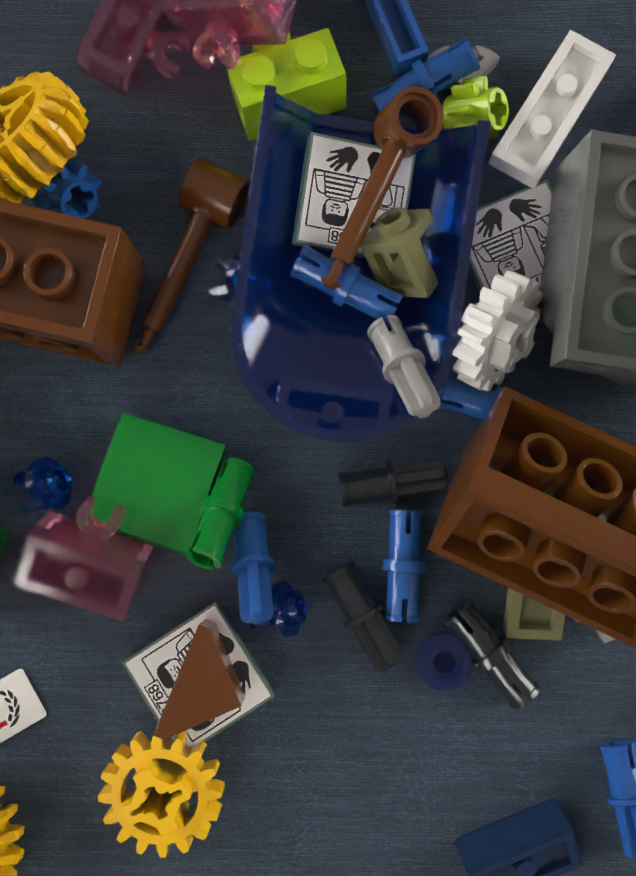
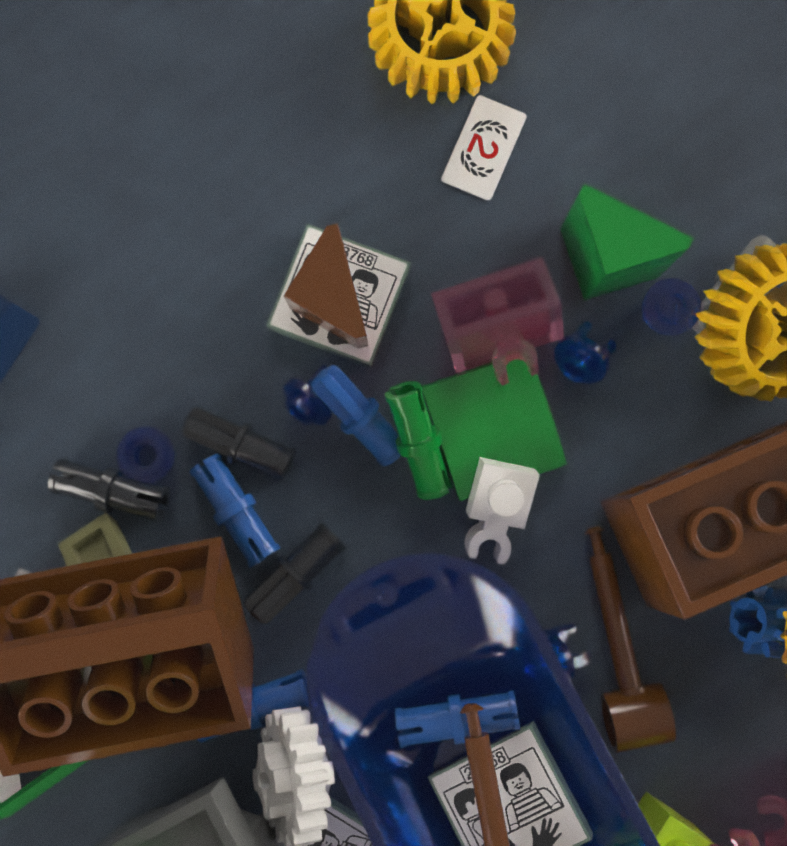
camera: 150 degrees right, 0 degrees up
(153, 814) = (301, 187): yellow gear -> none
(197, 423) = (498, 499): none -> white plate
(397, 253) = (433, 783): olive bracket -> none
(404, 367) = (351, 681): light grey axle -> none

